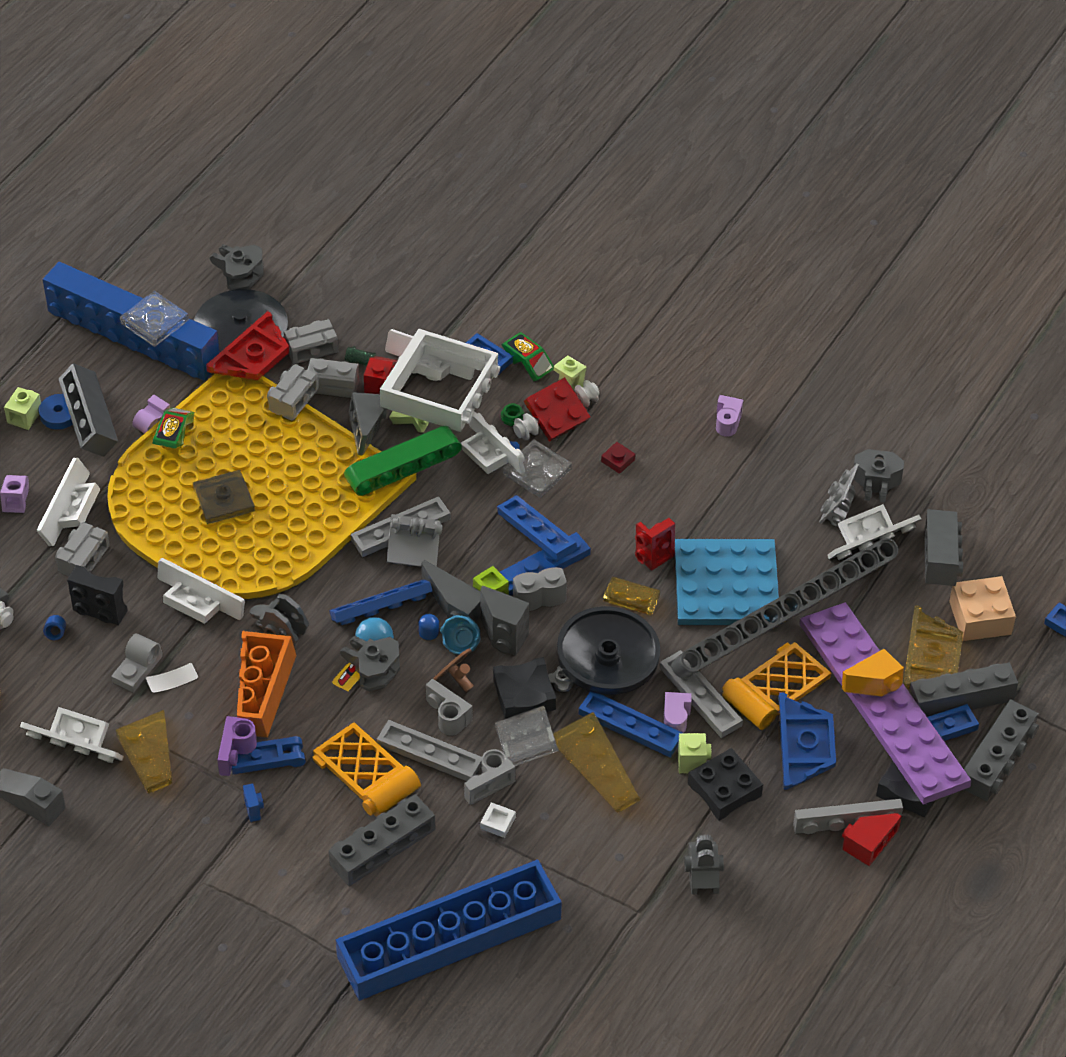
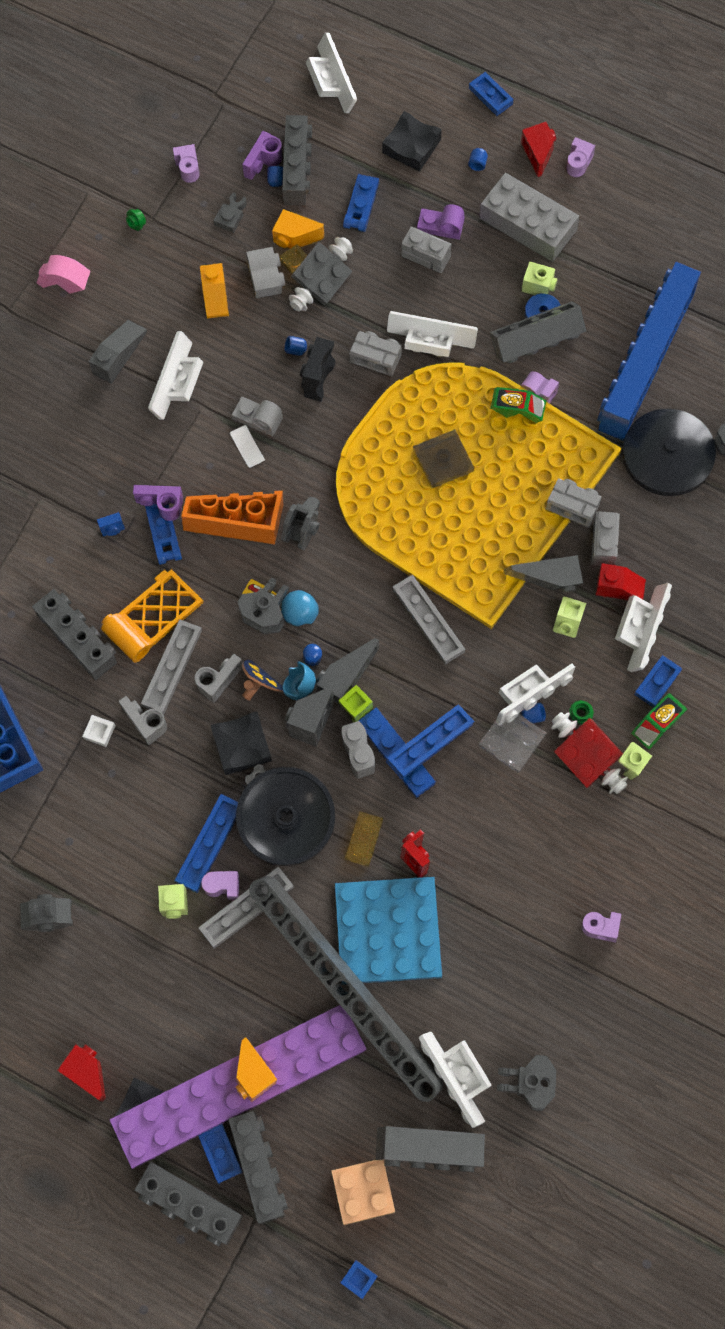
camera: 90 degrees right, 20 degrees up
(14, 493) = (439, 289): lavender leg -> none
(148, 750) = (166, 437): clear yellow wing -> none
(154, 318) = (634, 362): clear plate -> none
(197, 595) = (328, 449): white bracket -> none
(252, 352) = (625, 462): red wing -> none
(311, 341) = (652, 514): light grey brick -> none
(358, 356) = (640, 561): clear green pin -> none
(391, 598) = (336, 608): blue plate -> none
(402, 460) = (498, 610): green beam -> none
(413, 540) = (407, 630): light grey hinge -> none
(449, 350) = (612, 599): white window -> none
(526, 736) = (186, 748): clear slope -> none
(593, 756) = (166, 813): clear yellow wing -> none
(618, 457) = (538, 818): dark red plate -> none
(725, 783) = (142, 933): black brick -> none
(752, 699) = (238, 956): light orange piece -> none
(805, 741) = (193, 1008): blue wing -> none
(840, 498) = (508, 1042): light grey hinge -> none
(840, 816) = (107, 1061): light grey plate -> none
(932, 648) = (311, 1138): clear yellow wing -> none

